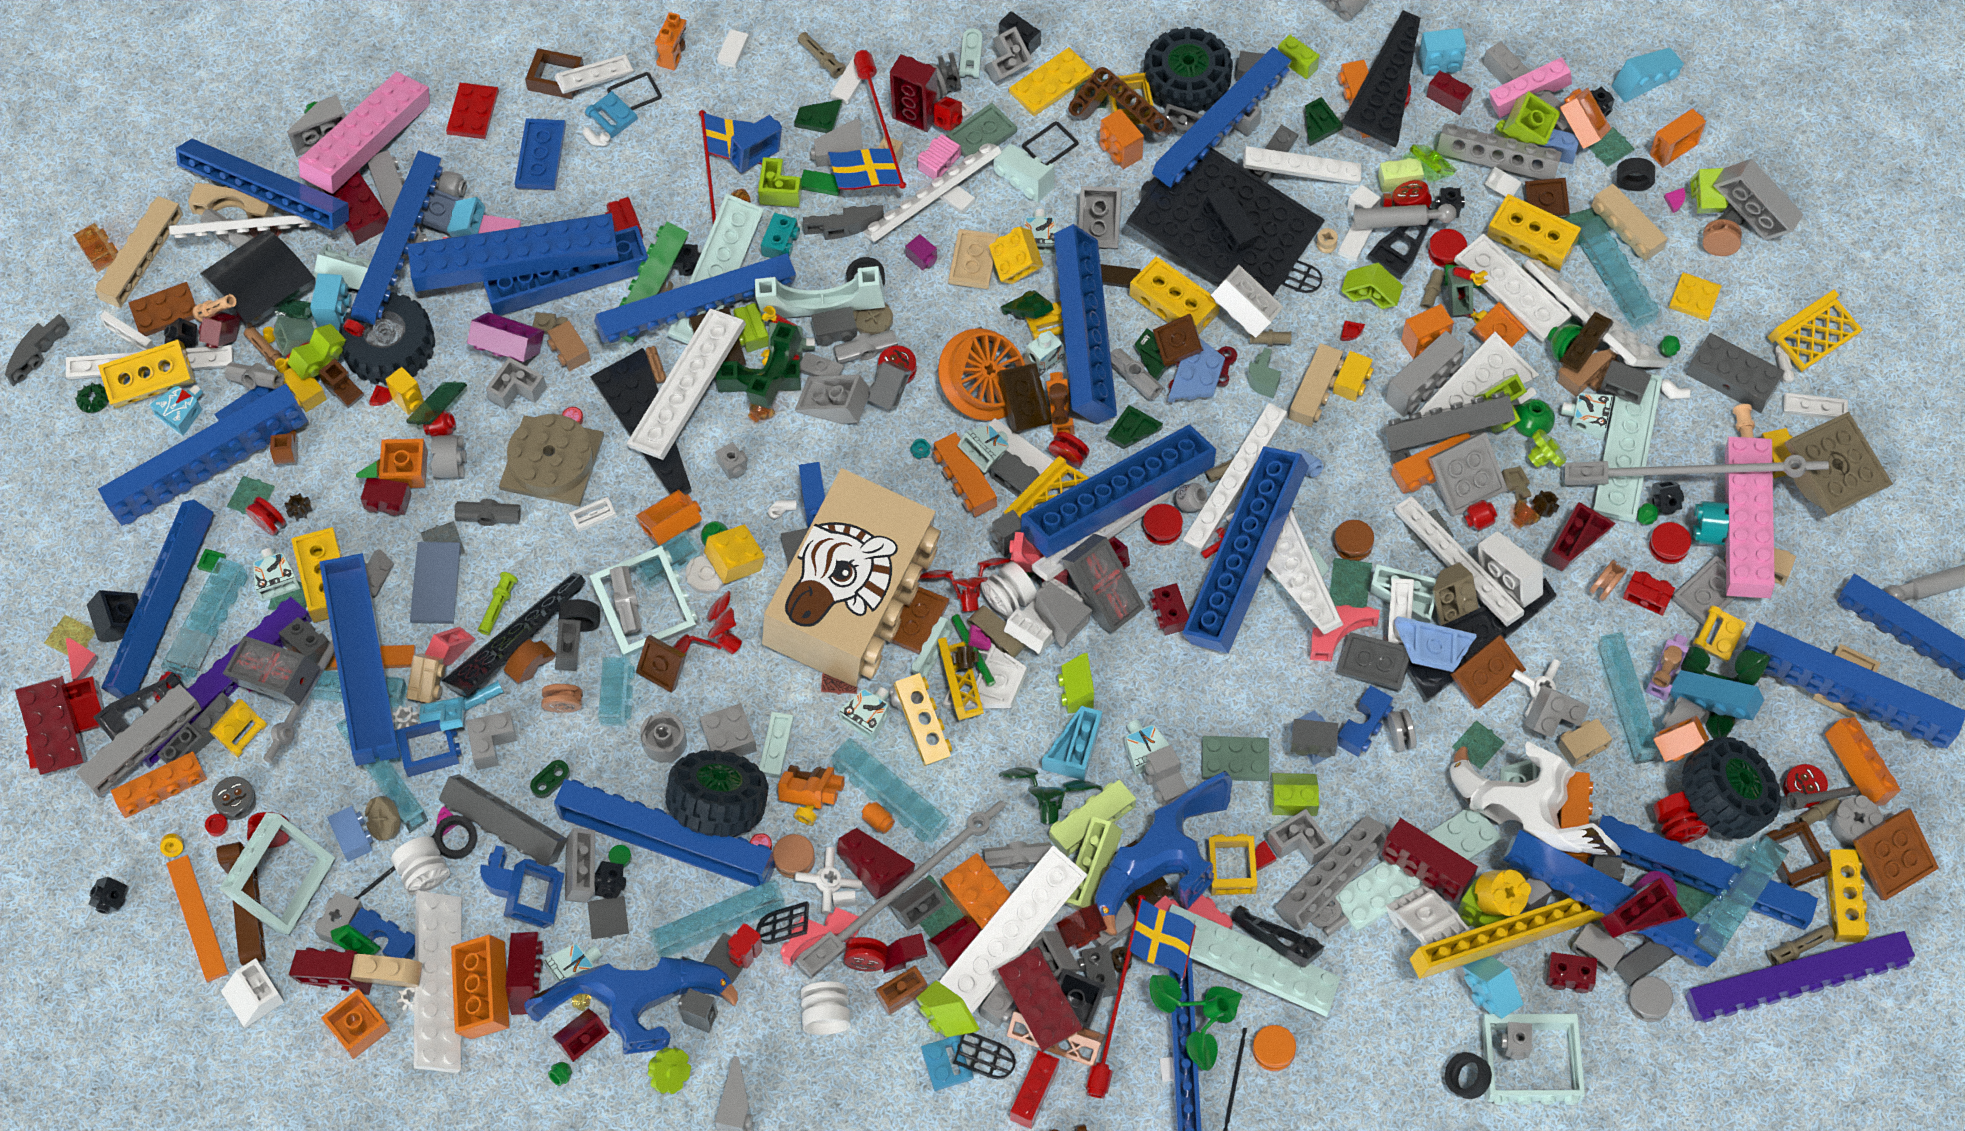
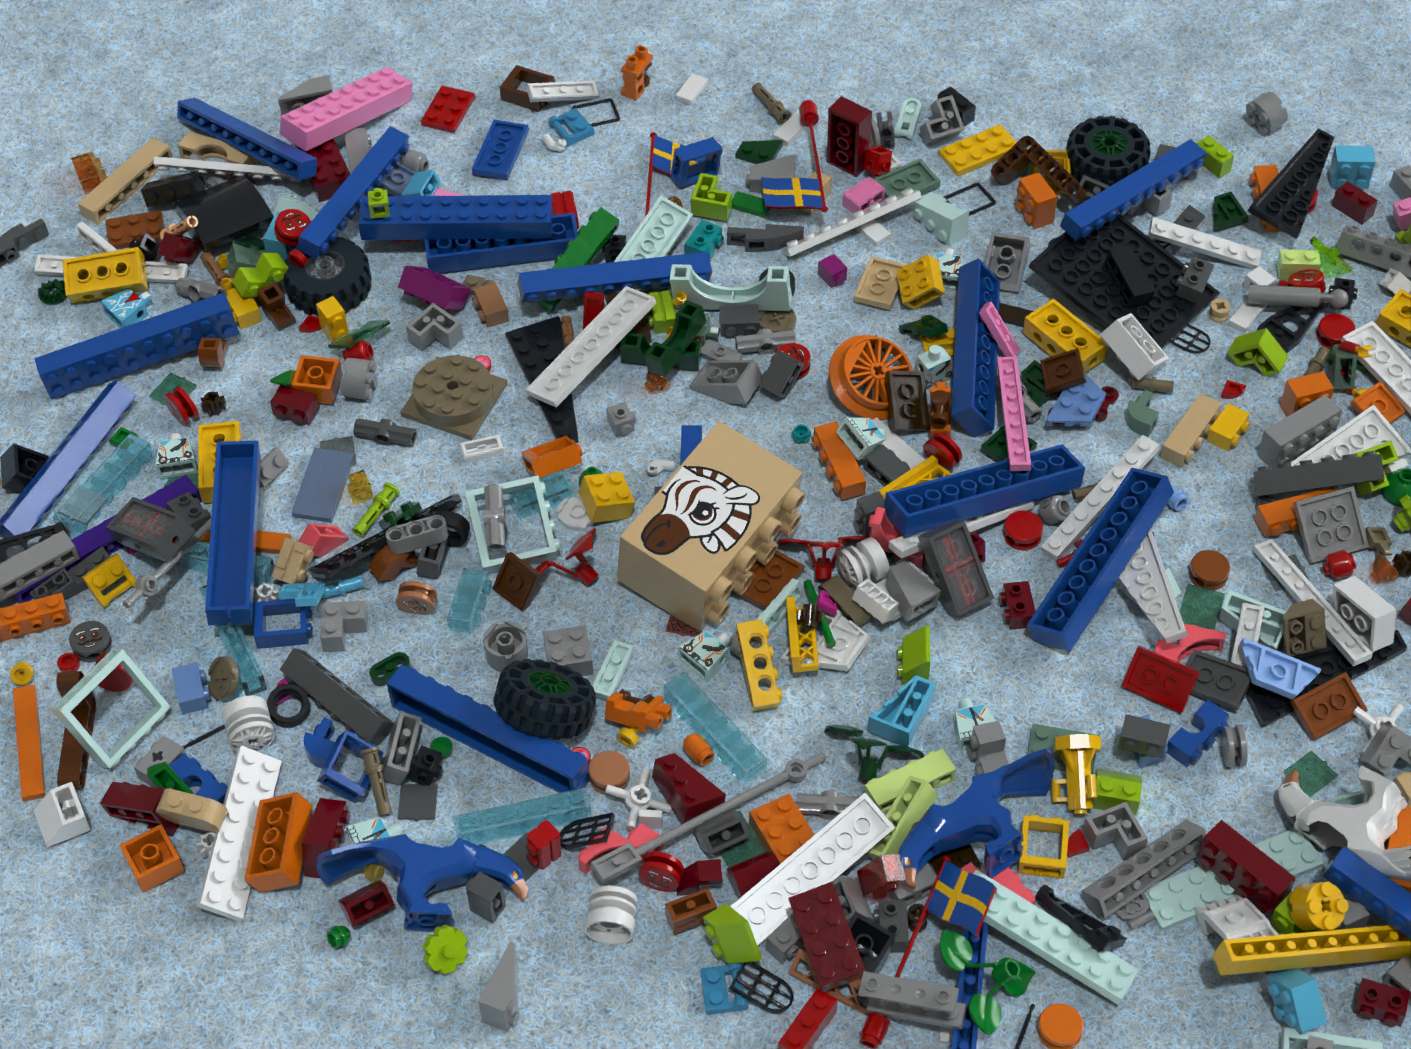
camera: 10 degrees right, 10 degrees down
(195, 257) = (172, 189): none -> black brick
(339, 291) = (290, 225): none -> red head
(428, 250) = (378, 198): none -> lime brick
(475, 581) = (359, 487): none -> clear yellow brick
(528, 604) = (392, 518): none -> dark green wing
(544, 641) = (416, 534): none -> light grey beam
(559, 895) = (374, 770): none -> dark tan pin
(678, 338) = (592, 307): none -> red tile
(1106, 302) = (998, 330): none -> bright pink plate
(1132, 1051) = (912, 1000): none -> light grey fence
(1135, 399) = (1013, 414): none -> bright pink plate
(1260, 799) = (1077, 755): none -> yellow piece
(1297, 211) = (1194, 280): none -> dark grey brick
(1321, 669) = (1160, 679): none -> red plate

